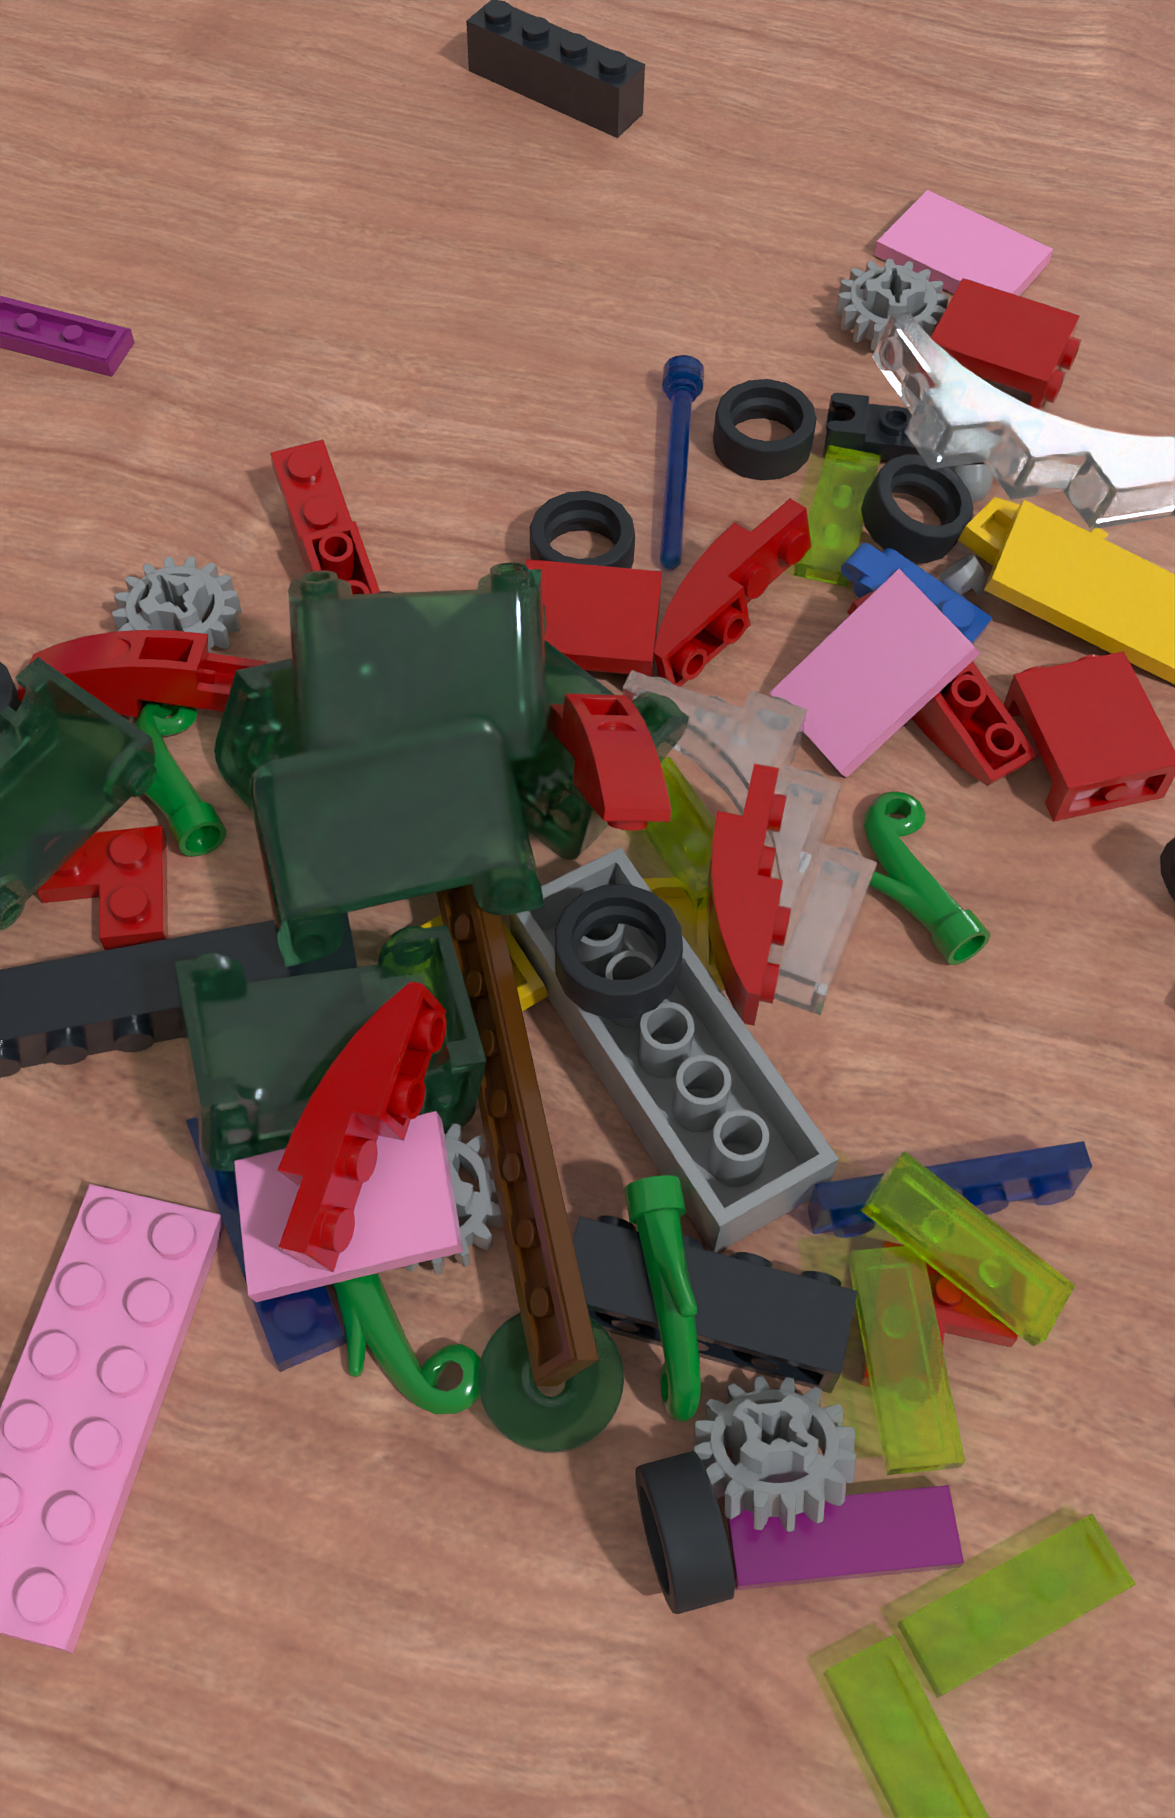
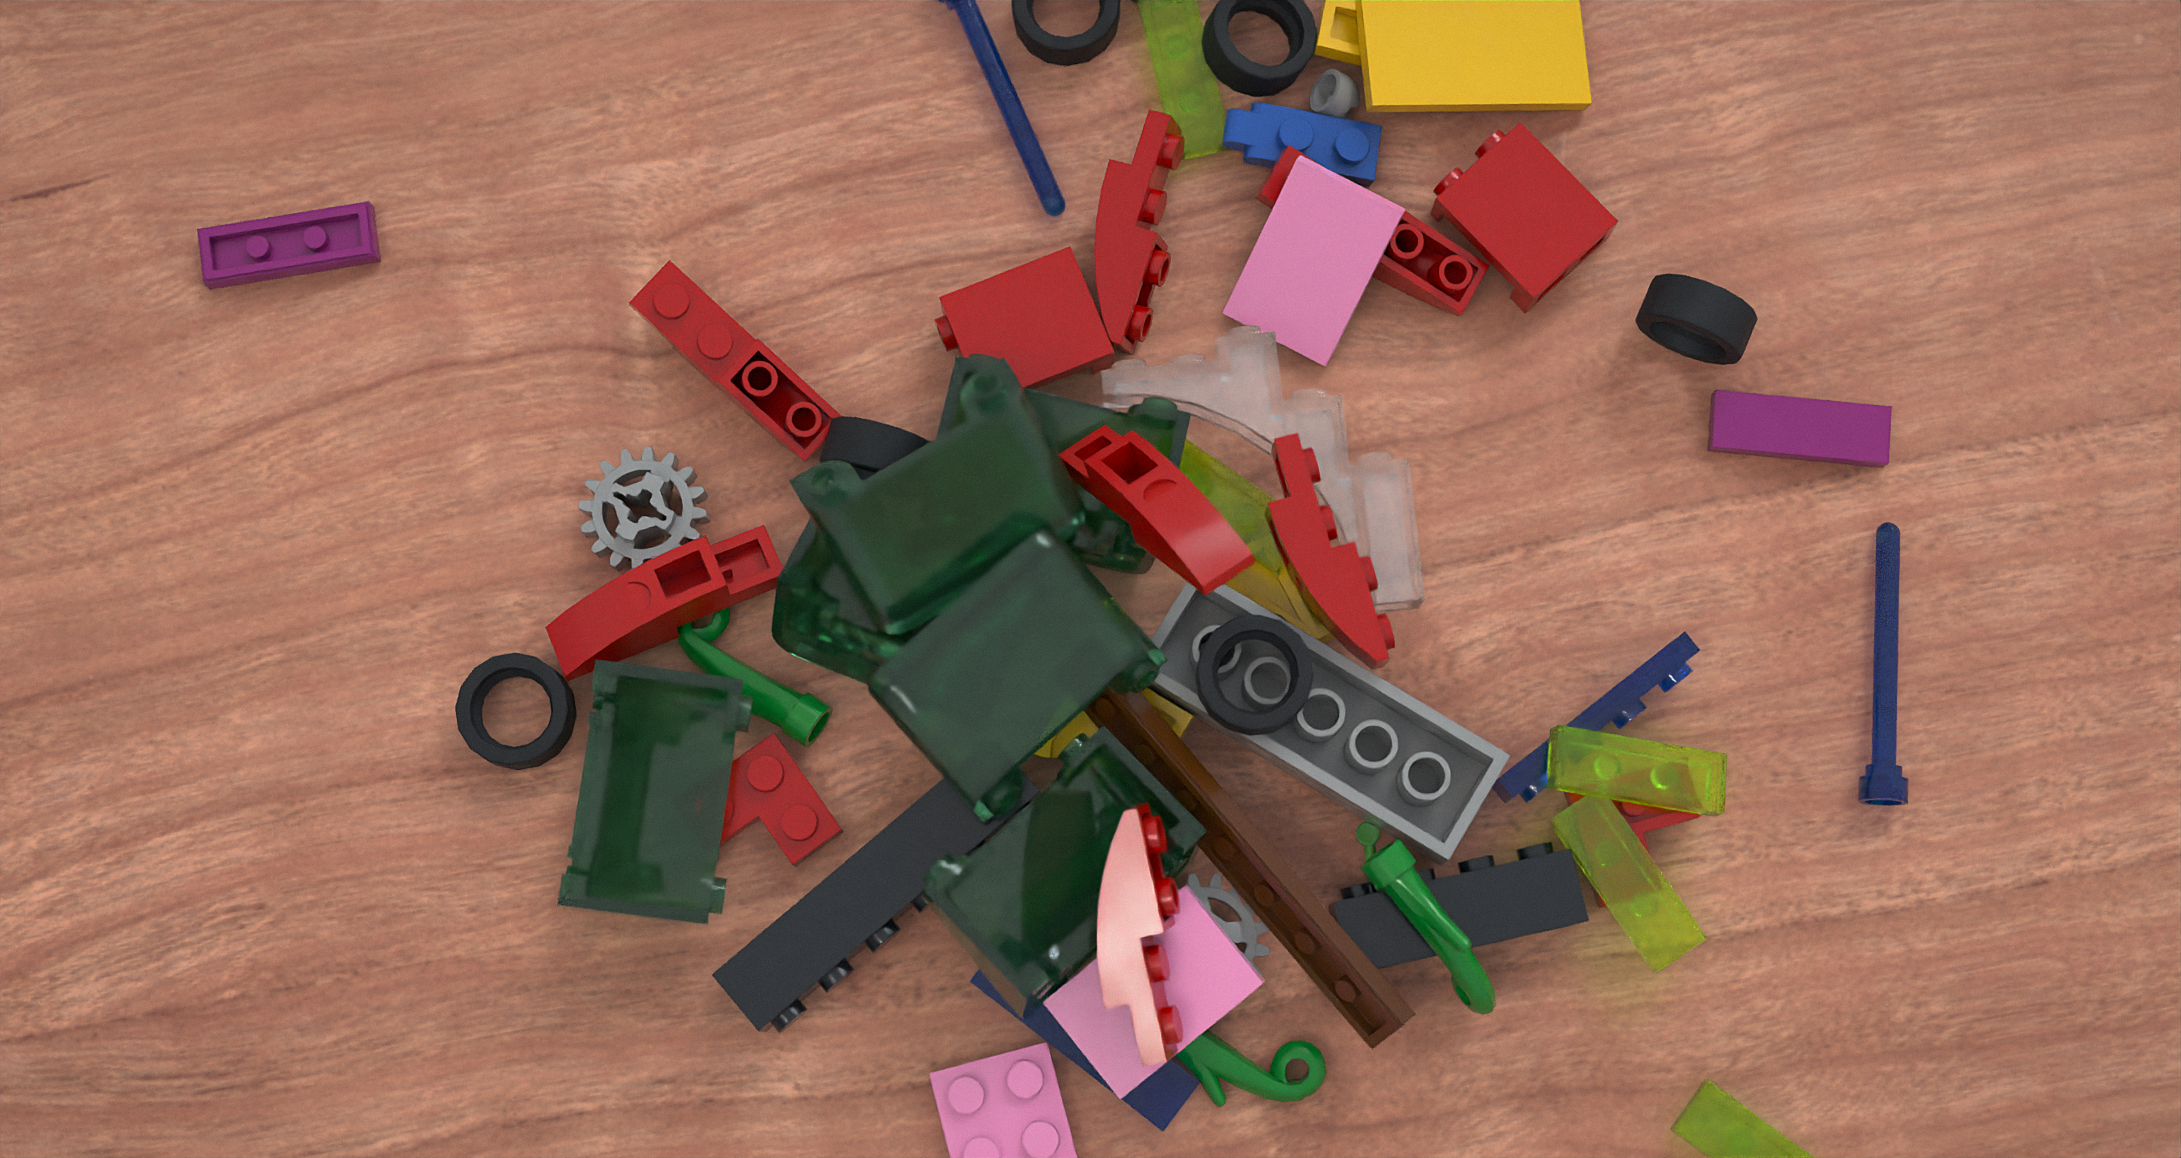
camera: 25 degrees left, 20 degrees up
(540, 1420) = (1388, 1065): clear green dish -> none
(583, 512) = (958, 195): black tyre -> none
(685, 1532) = (1534, 1095): black tyre -> none
(776, 1452) = (1546, 982): light grey gear -> none
(856, 1540) = (1640, 1029): magenta tile -> none
(953, 930) = (1437, 449): green plant -> none
(1015, 1605) = (1781, 1010): clear neon green tile -> none

